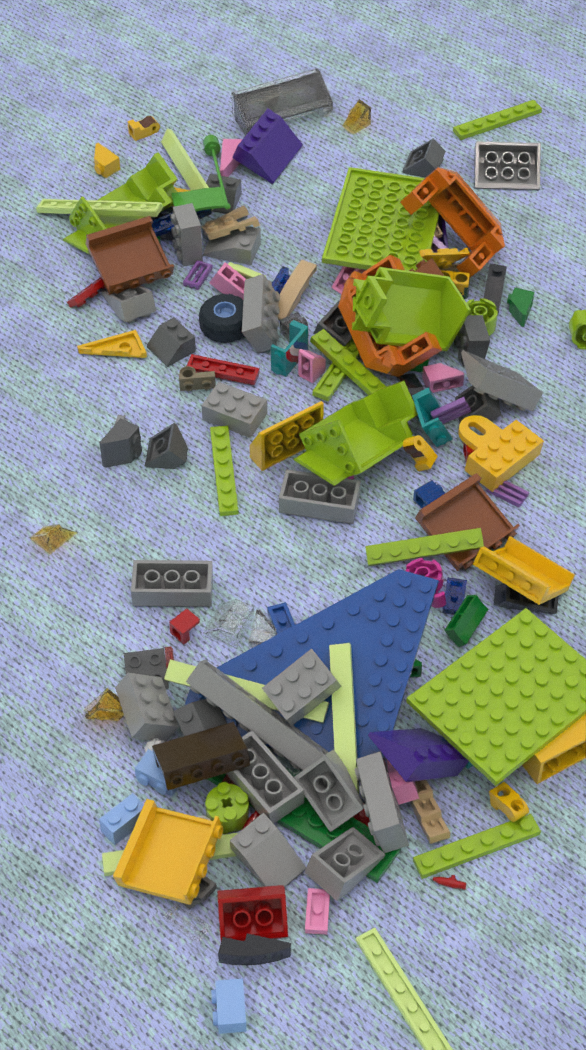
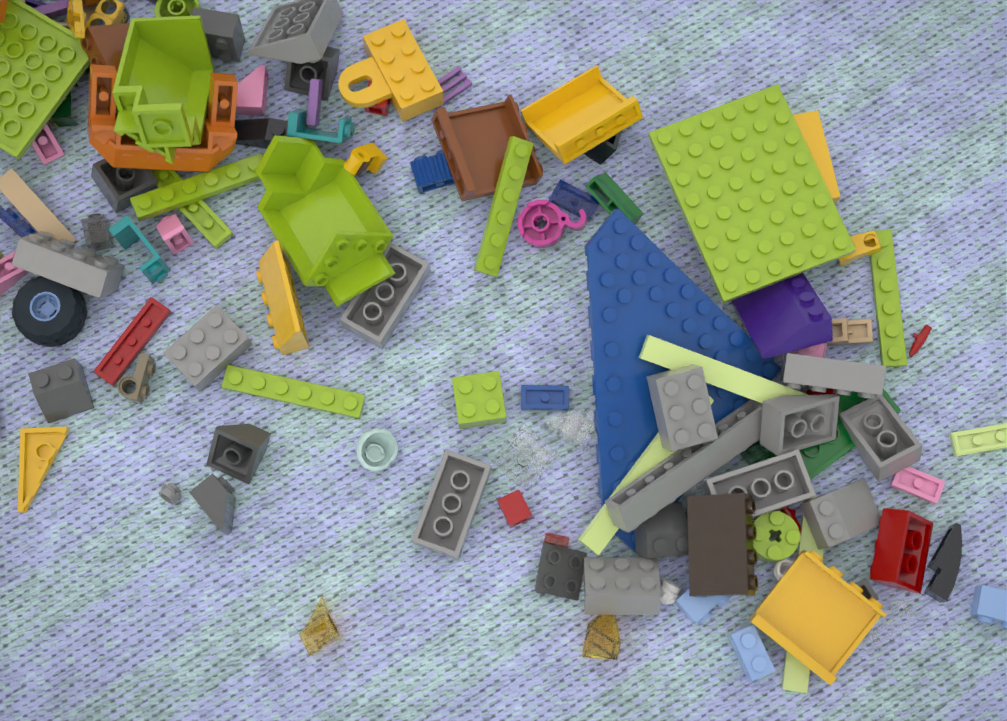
camera: 70 degrees left, 25 degrees up
(197, 526) = (376, 449): none -> light aqua hair
(262, 578) = (479, 399): none -> lime brick

